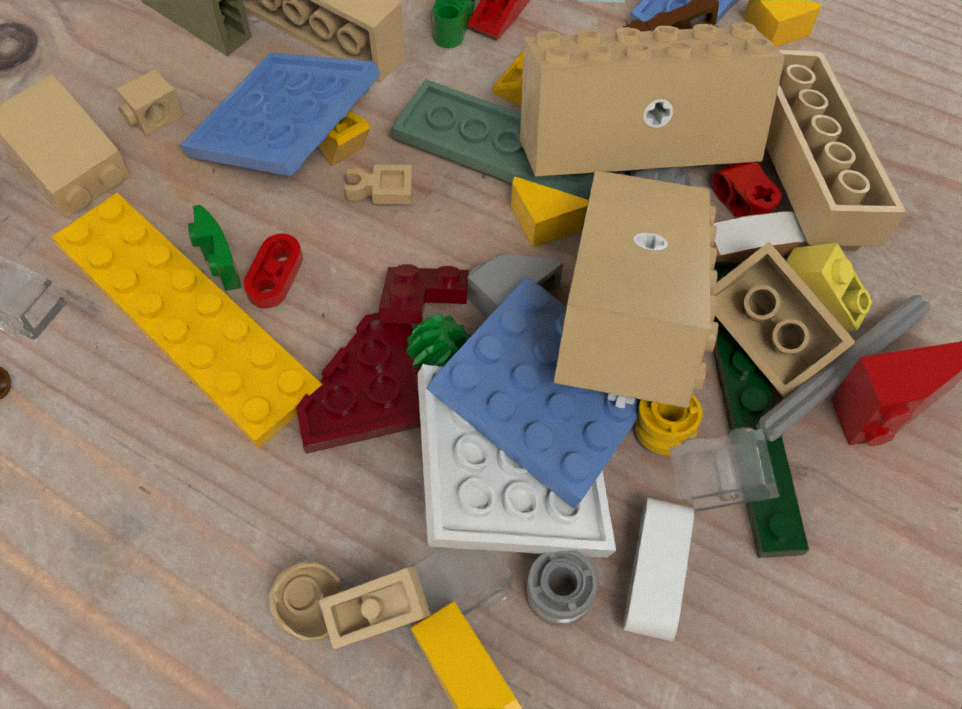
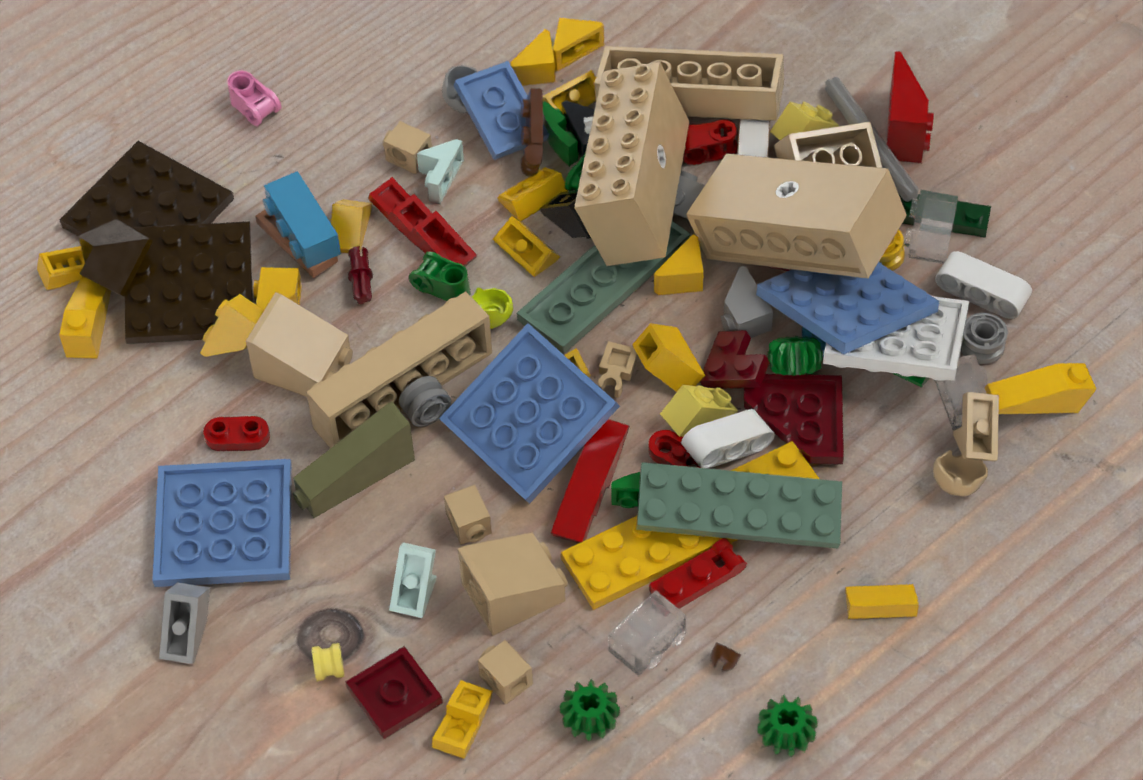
camera: 70 degrees left, 5 degrees down
(66, 69) = (413, 580): none -> light aqua slope
(91, 548) = (881, 601): none -> yellow slope
(106, 330) = (699, 574): none -> red plate
(194, 348) = (739, 505): none -> sand green plate
(224, 192) = (589, 481): none -> red slope
(283, 30) = (424, 401): none -> light grey wheel
(294, 307) = (727, 439): none -> white beam
(339, 273) = (696, 406): none -> light yellow slope
(404, 220) = (668, 356): none -> yellow slope
(423, 55) = (495, 304): none -> neon yellow hair
(826, 34) = (575, 40): none -> yellow slope

